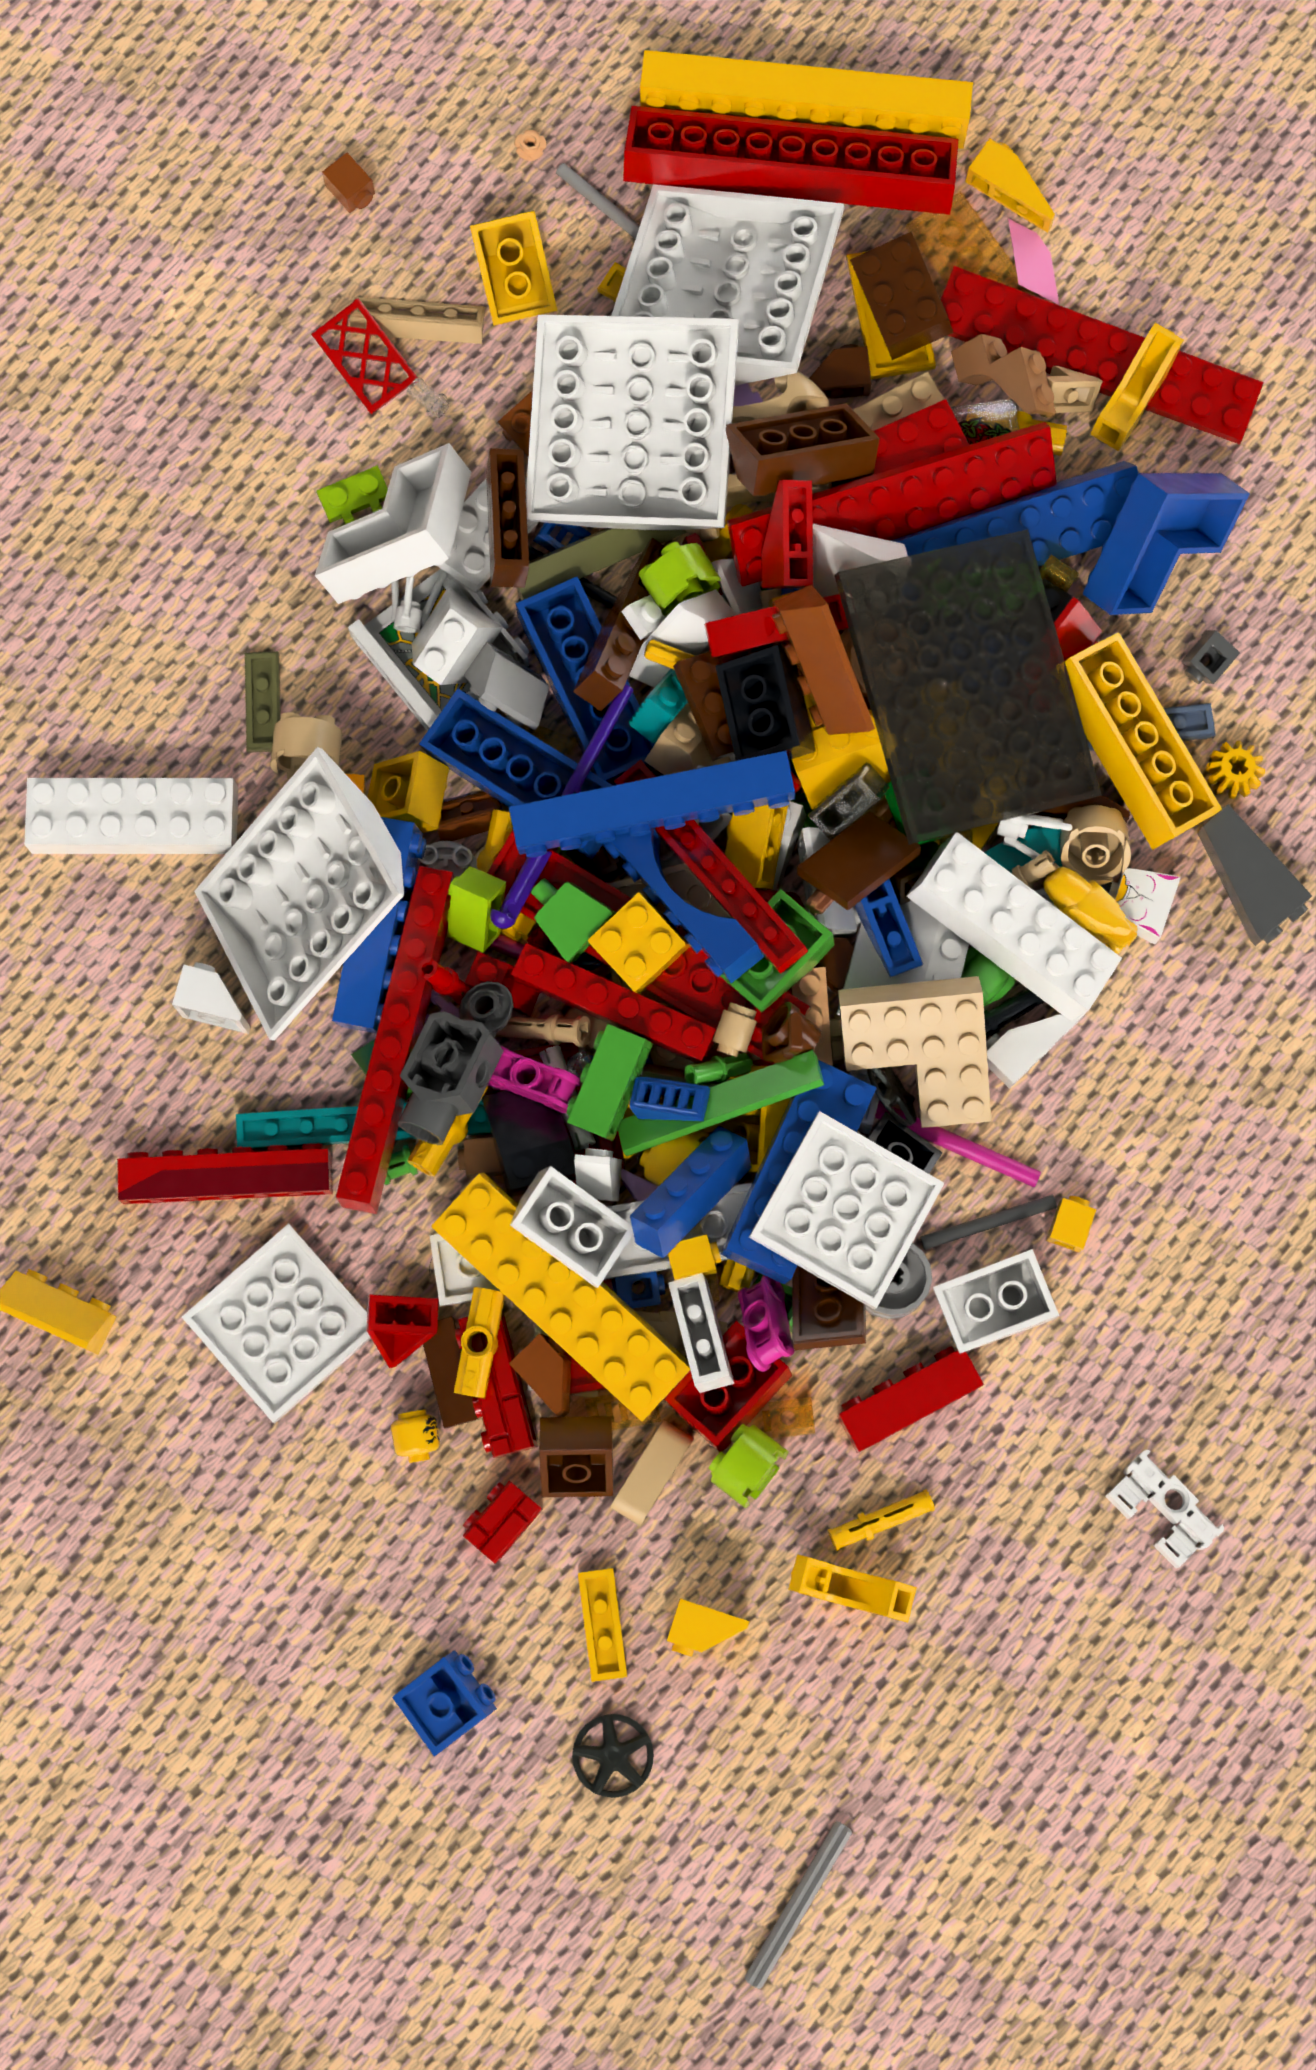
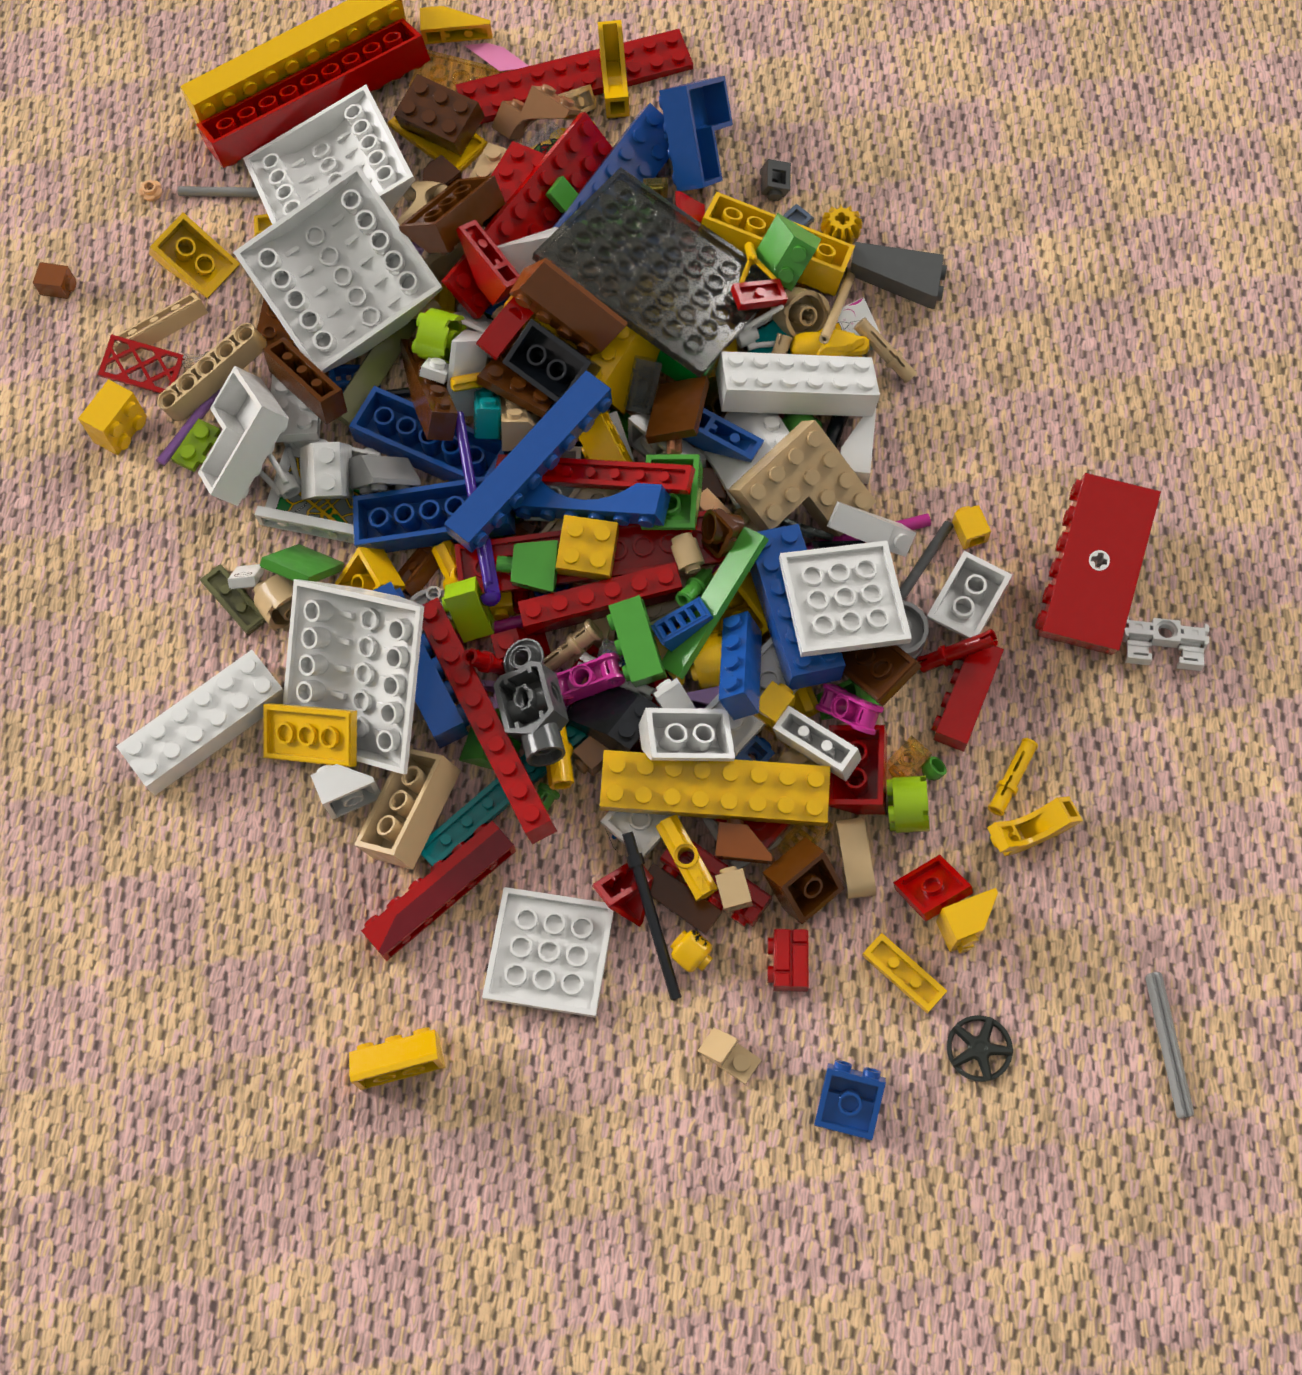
camera: 35 degrees left, 10 degrees down
(219, 917) = (310, 734): none -> yellow tile
(255, 1072) = (408, 809): none -> tan brick
(288, 402) = (113, 417): none -> yellow brick
(289, 689) = (245, 576): none -> white tile
(351, 724) = (301, 564): none -> bright green tile
(369, 1564) = (729, 1055): none -> tan slope
(381, 459) = (199, 413): none -> medium lavender bar
(427, 426) = (211, 372): none -> tan beam
(429, 1306) = (635, 861): none -> black bar
(498, 1411) = (733, 889): none -> tan brick
(699, 1566) = (932, 887): none -> red plate
(808, 1447) = (934, 769): none -> bright green hinge
(922, 1343) = (947, 654): none -> red pin
(945, 507) = (561, 194): none -> bright green tile
(959, 1149) = (871, 528): none -> white slope
(1054, 796) = (758, 294): none -> red plate
(1082, 748) = (751, 260): none -> yellow plant
(1109, 1408) = (1106, 525): none -> red piece
(1126, 768) = (787, 250): none -> bright green slope
(1138, 868) = (837, 308): none -> tan piece
(1156, 995) = (885, 350): none -> tan pin

